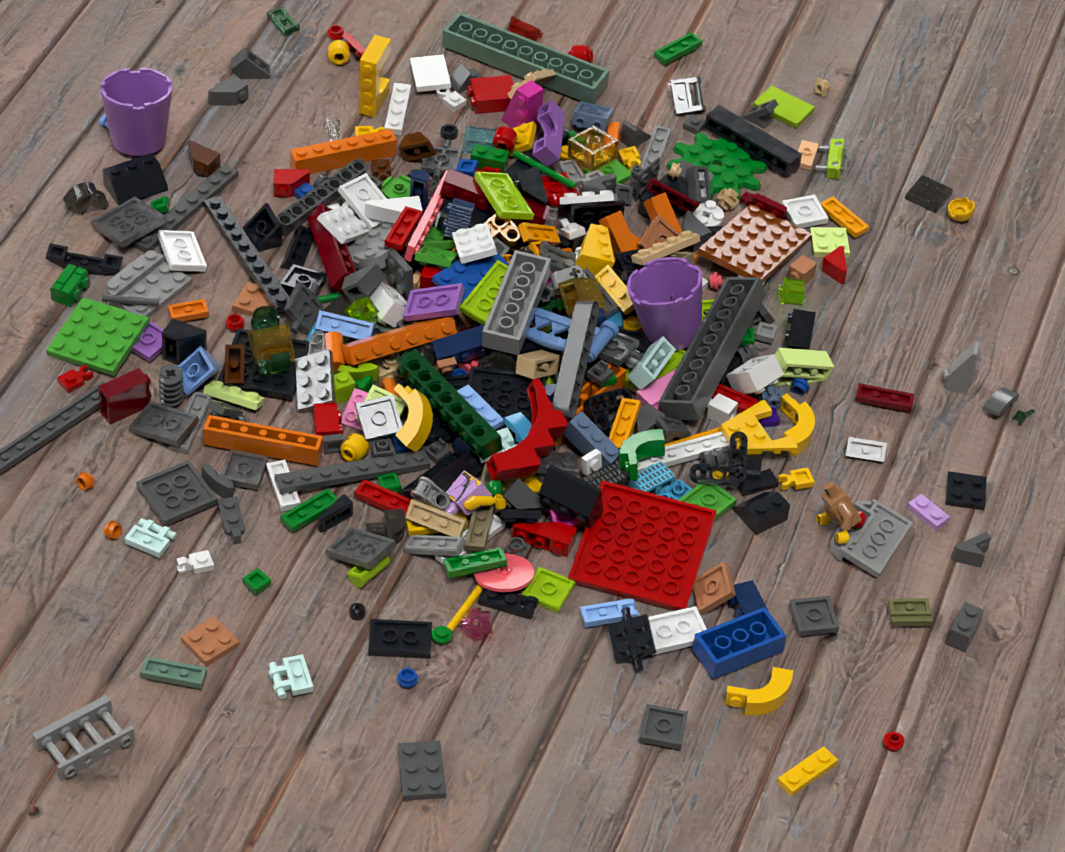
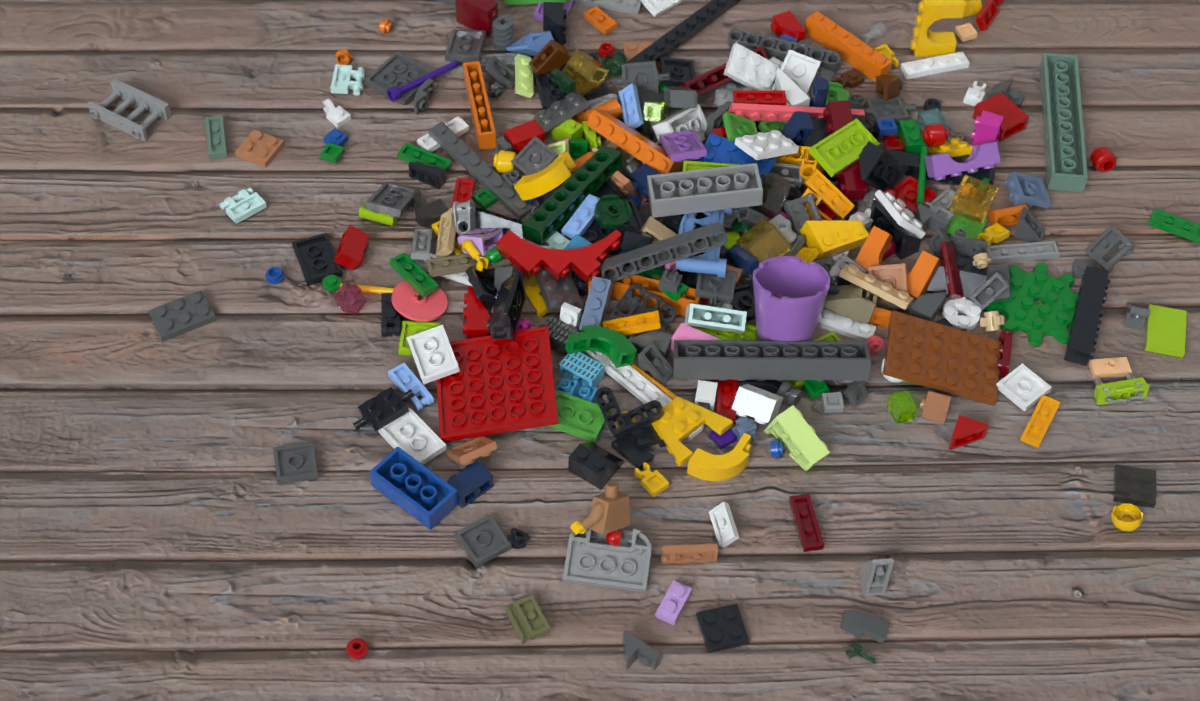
camera: 70 degrees right, 5 degrees up
(207, 499) = (395, 93): none -> dark purple piece
(231, 518) = (393, 119): dark grey hinge -> none
(233, 574) = (336, 137): none -> blue plate
(245, 468) = (446, 107): flat silver plate -> none
(264, 229) = (717, 35): black slope -> none
(298, 248) = (710, 60): black slope -> none
(357, 616) = (333, 223): black hinge -> none
(409, 601) = (351, 248): none -> red brick
(430, 73) = (994, 69): white tile -> none
(493, 390) = (610, 220): none -> dark green plate
(516, 546) = (455, 301): dark grey plate -> none
(524, 29) = (1106, 113): clear red hinge -> none
(538, 77) = (1024, 130): tan plate -> none
(544, 372) = (633, 238): none -> black slope
(587, 578) = (433, 354): none -> white plate
(714, 457) = (633, 402): dark grey wheel -> none
(764, 699) = (367, 534): yellow arch -> none
(800, 328) = (849, 422): black brick -> none
(807, 771) = (293, 589): yellow plate -> none
(821, 590) = (518, 538): none -> black plate
(827, 239) = (1001, 420): yellowish green plate -> none
(885, 482) = (689, 553): none -> nougat hinge
(965, 627) = (527, 670): dark grey brick -> none

